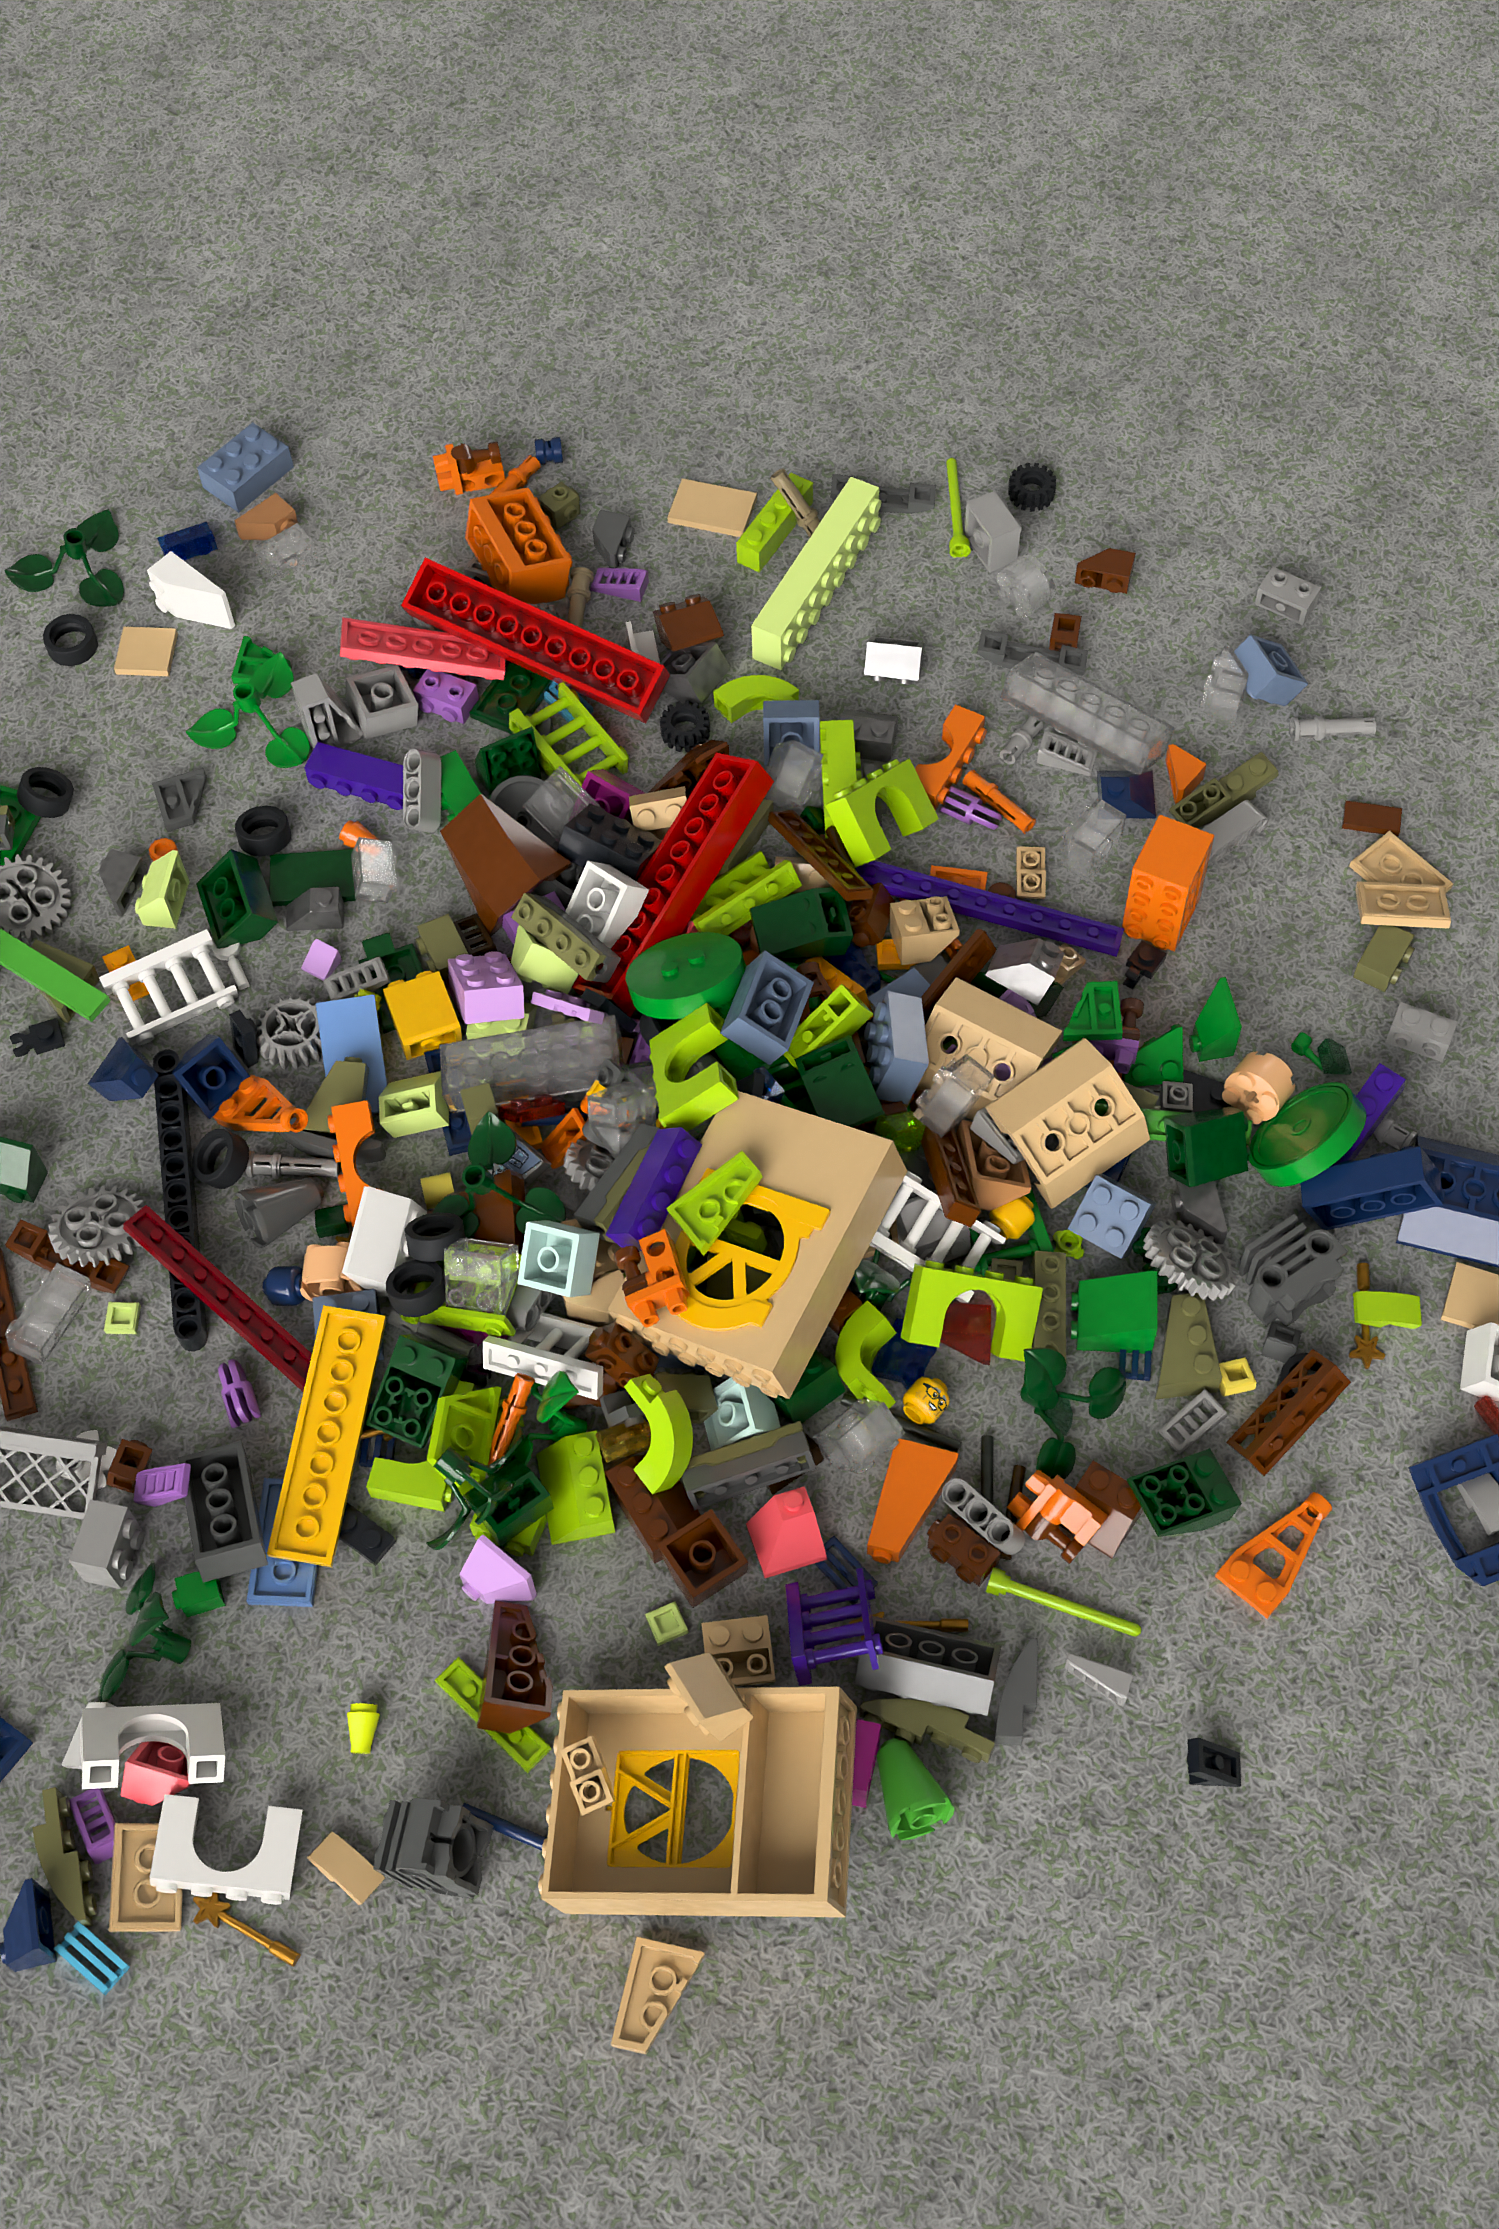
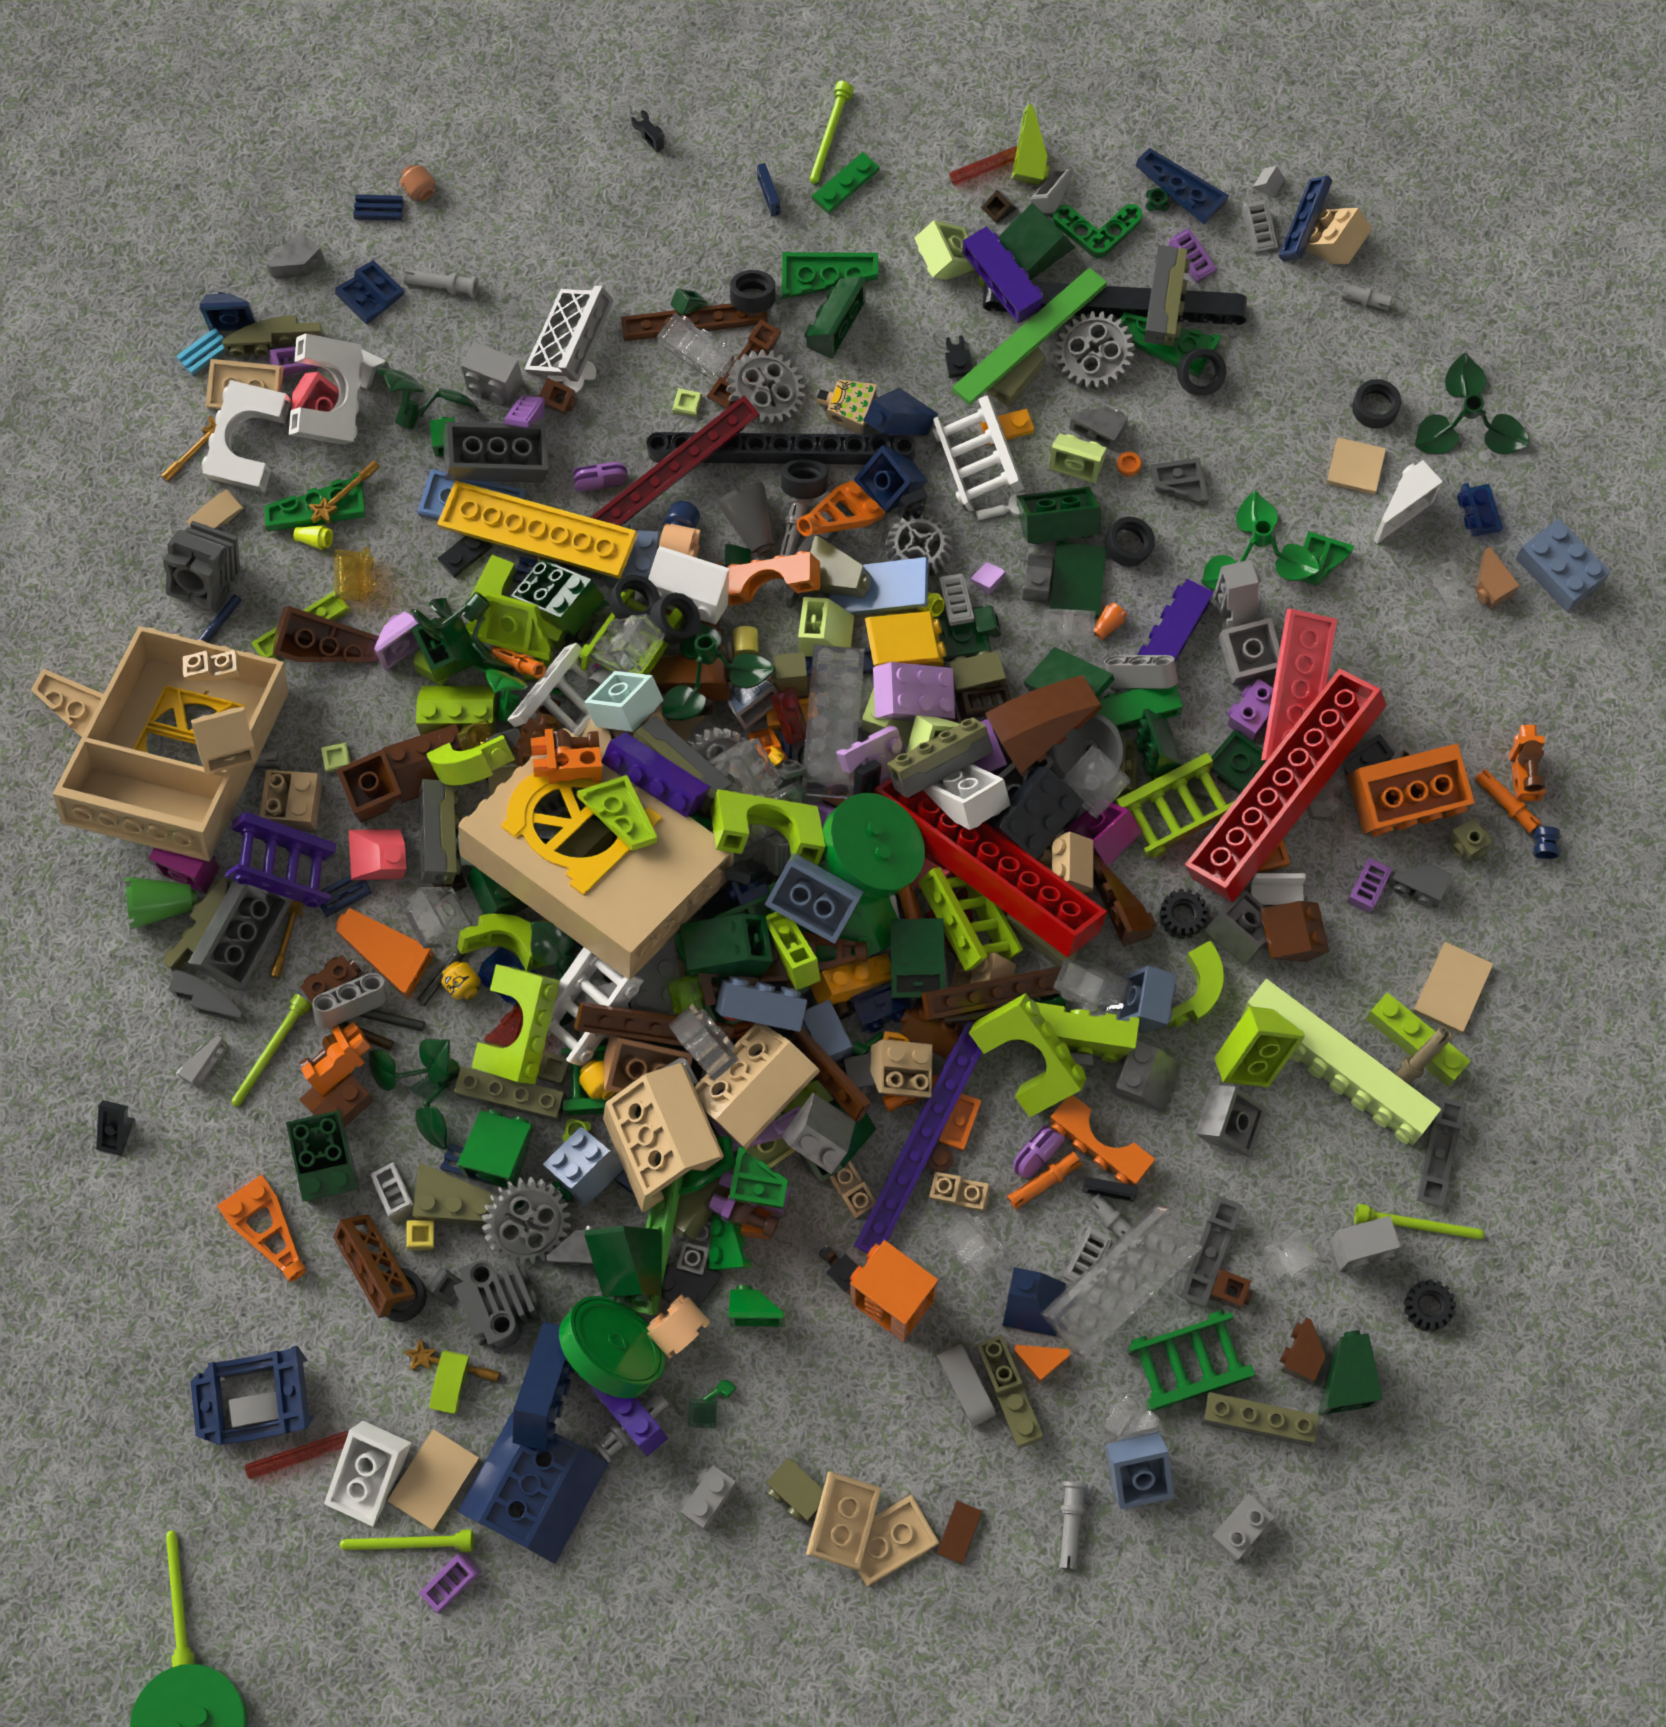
camera: 100 degrees right, 10 degrees up
(113, 1134) = (848, 403): none -> tan torso
(312, 1722) = (295, 511): none -> green wing
(323, 1714) = (324, 509): none -> pearl gold piece
(411, 1658) = (353, 574): none -> clear yellow bracket
(431, 866) = (1062, 666): none -> dark green tile
(579, 594) = (1355, 843): dark tan pin -> none
(821, 632) = (1257, 1048): none -> lime slope
(993, 744) = (1110, 1189): none -> black tile
(1123, 523) = (1351, 1376): none -> dark green slope
(1158, 637) = (1210, 1380): none -> green fence
(1183, 594) = (1260, 1419): none -> olive piece

